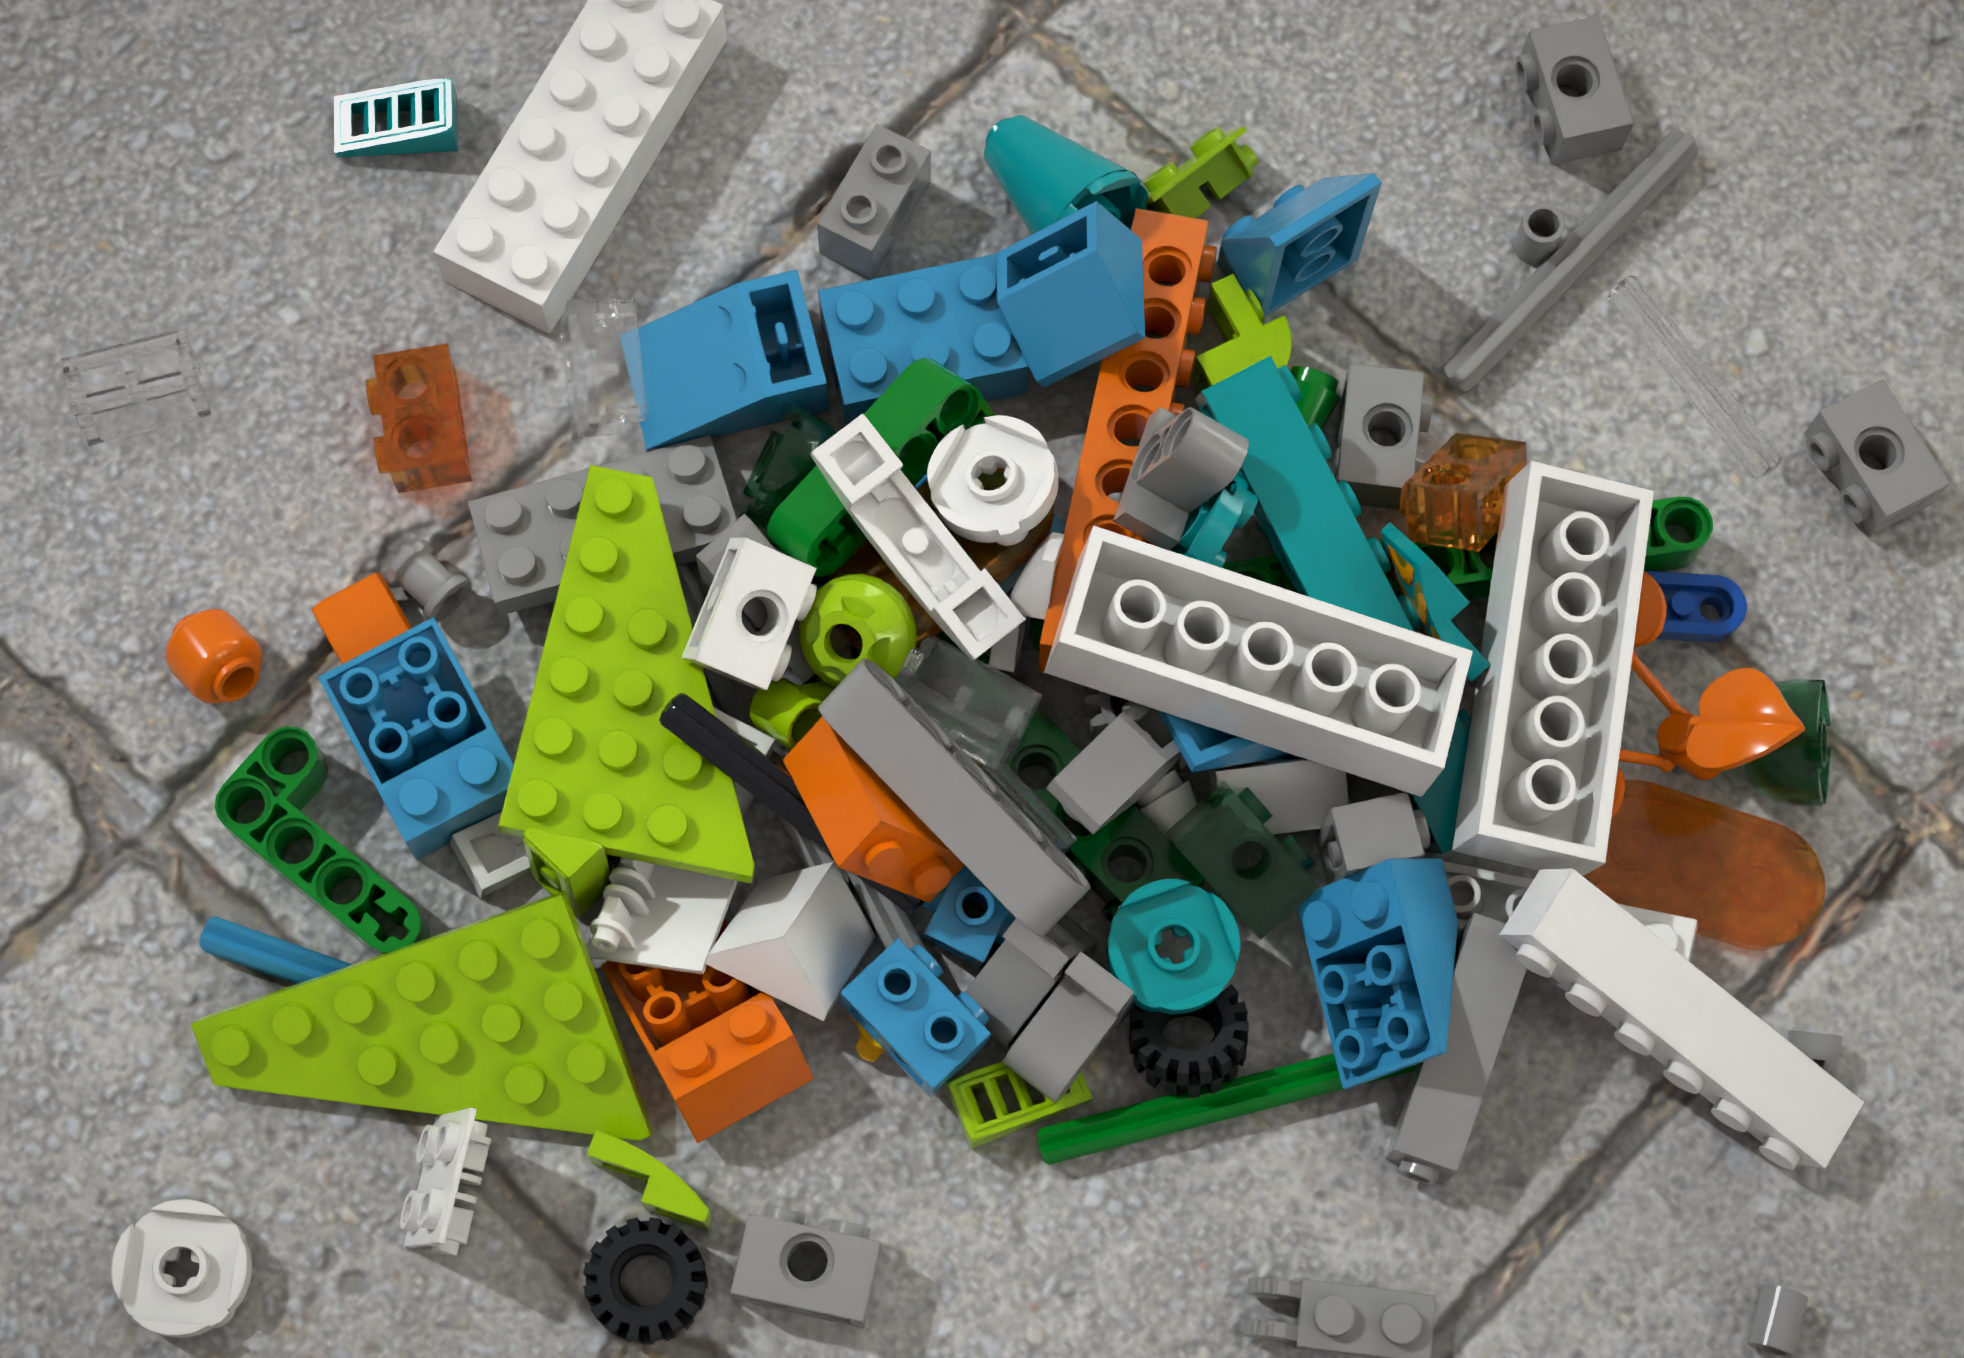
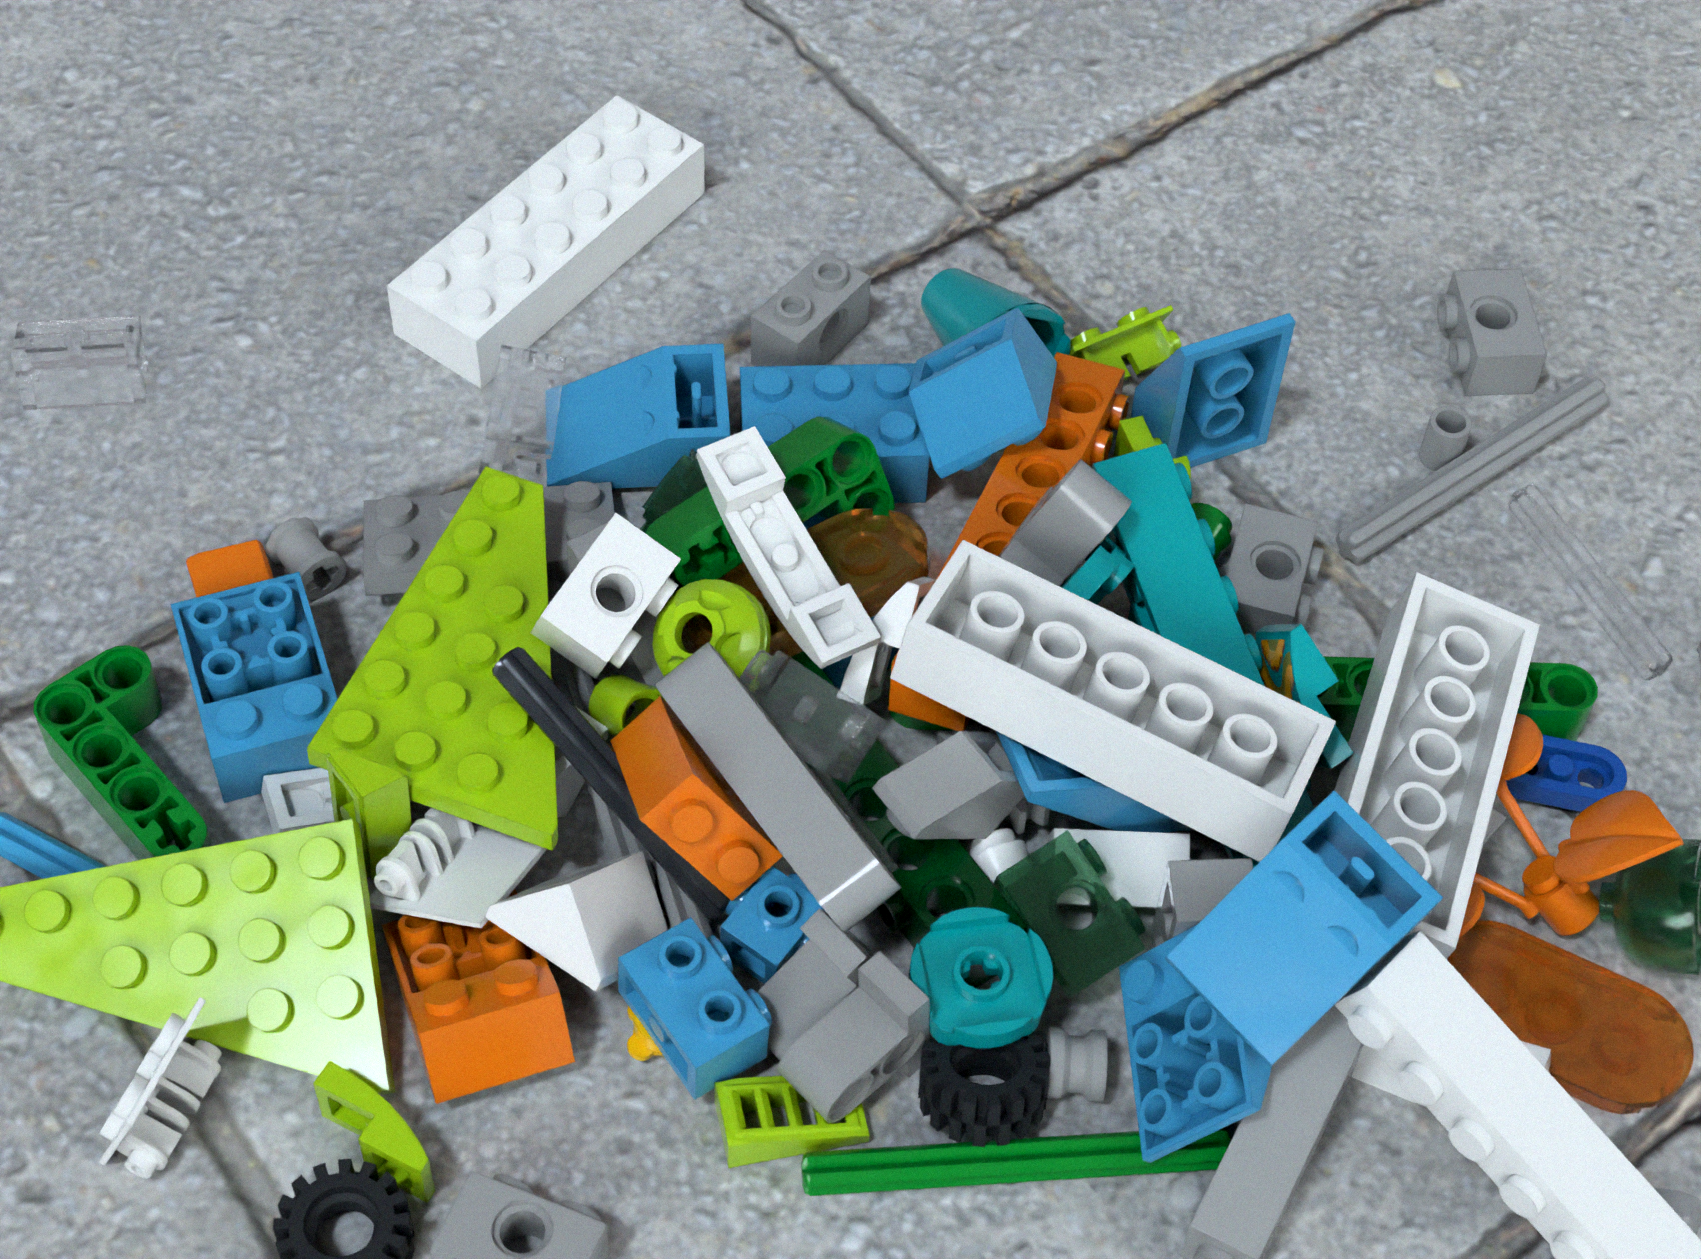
camera: 10 degrees right, 20 degrees down
(214, 656) = (79, 586): orange head -> none
(413, 97) = (405, 204): slope -> none
(431, 416) = (338, 426): clear orange brick -> none
(1001, 513) = (880, 547): white plate -> none
(1269, 998) = (1077, 1063): none -> light grey wheel
(1461, 491) = (1342, 618): clear orange brick -> none
(1467, 888) = (1303, 928): none -> dark azure slope

